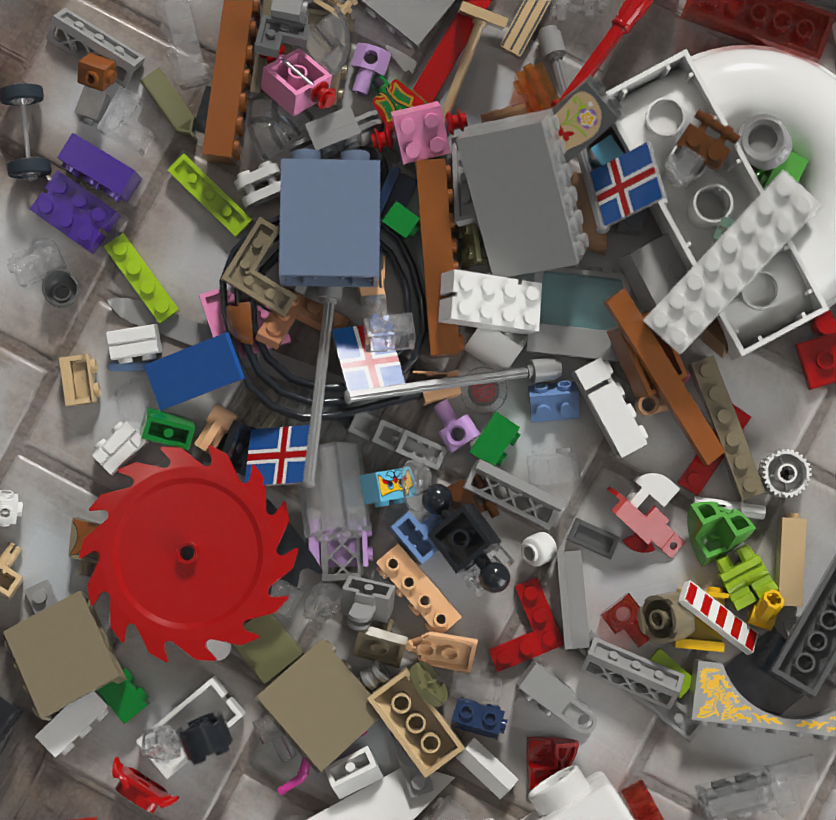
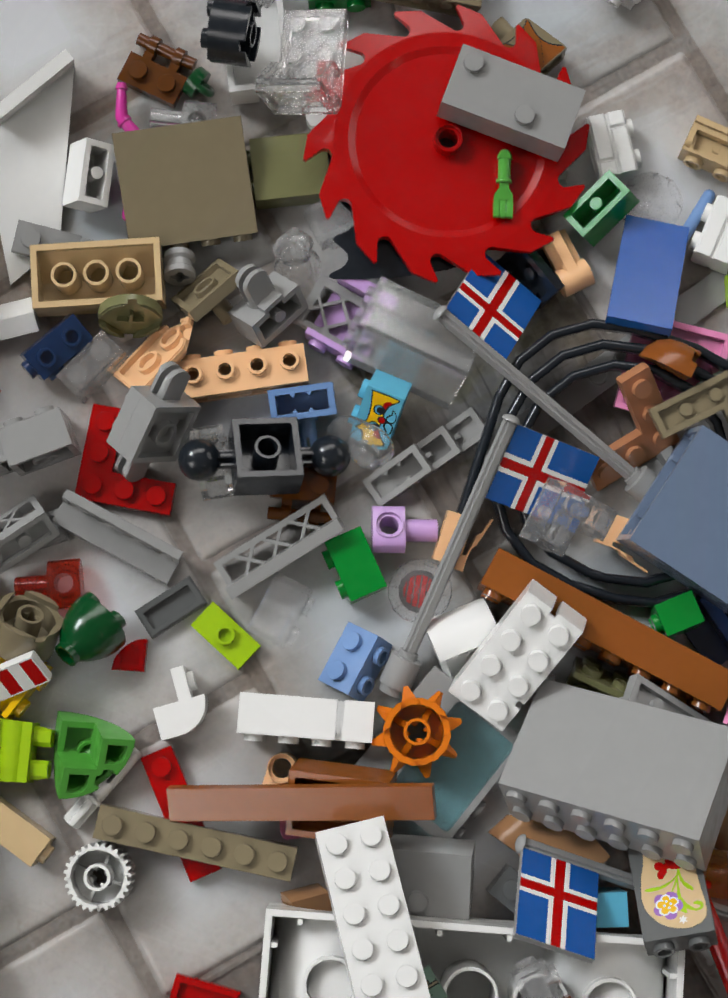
camera: 120 degrees right, 5 degrees down
(139, 526) = (511, 103): none -> light grey brick
(194, 673) = (309, 66): none -> clear bracket
(203, 493) = (503, 196): none -> bright green piece
(246, 742) = (198, 84): none -> dark green tile
(260, 776) = (152, 78): none -> reddish brown plate
(488, 622) = (153, 422): none -> light grey brick
(538, 549) = (199, 535): white head -> none
(586, 324) = (421, 751): none -> orange brick
(588, 492) = (225, 635): none -> lime plate
(643, 576) = (90, 631): none -> dark green piece
(649, 526) = (141, 676): piece -> none

